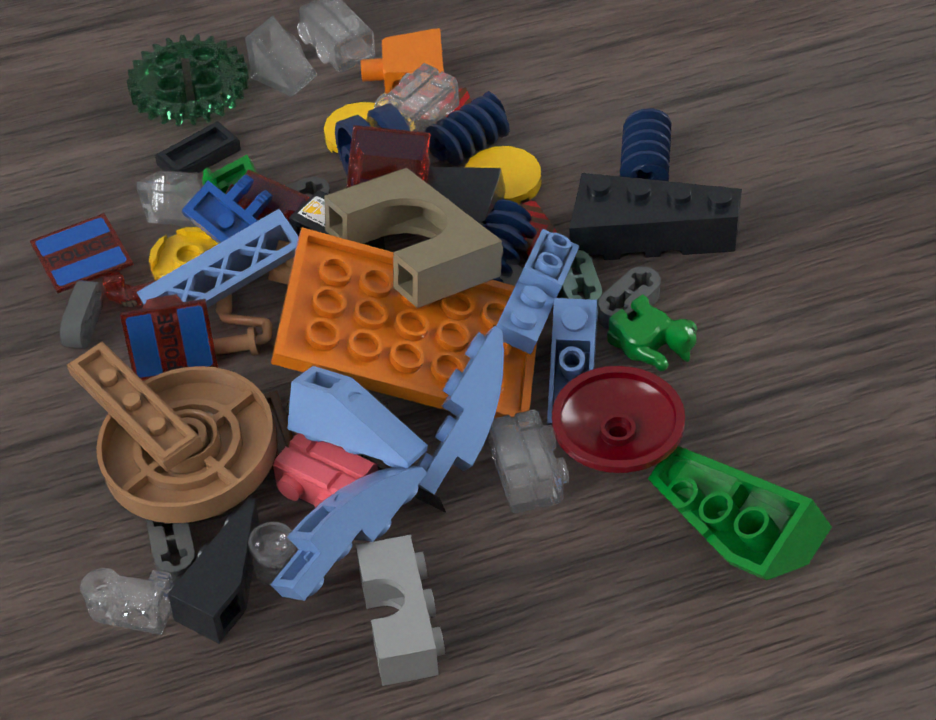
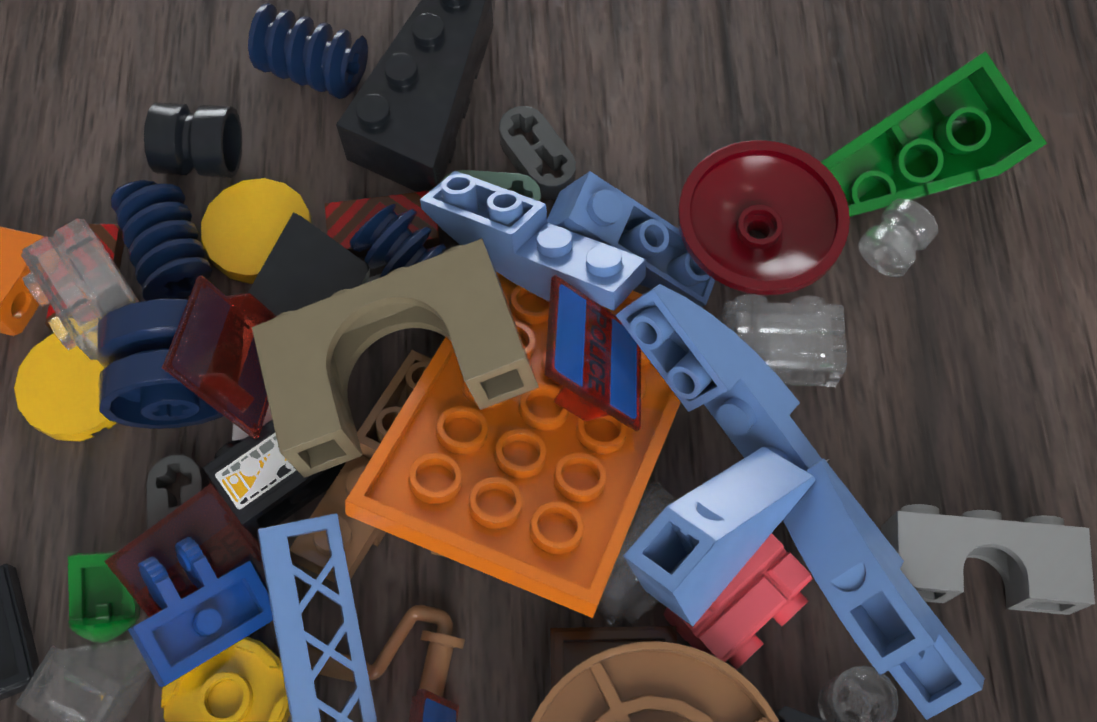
camera: 75 degrees left, 20 degrees up
(445, 323) = (592, 358): none -> piece
(549, 120) = (184, 140): none -> black wheel
(645, 514) = (894, 242): none -> clear wheel
(649, 332) = (607, 142): green animal -> none

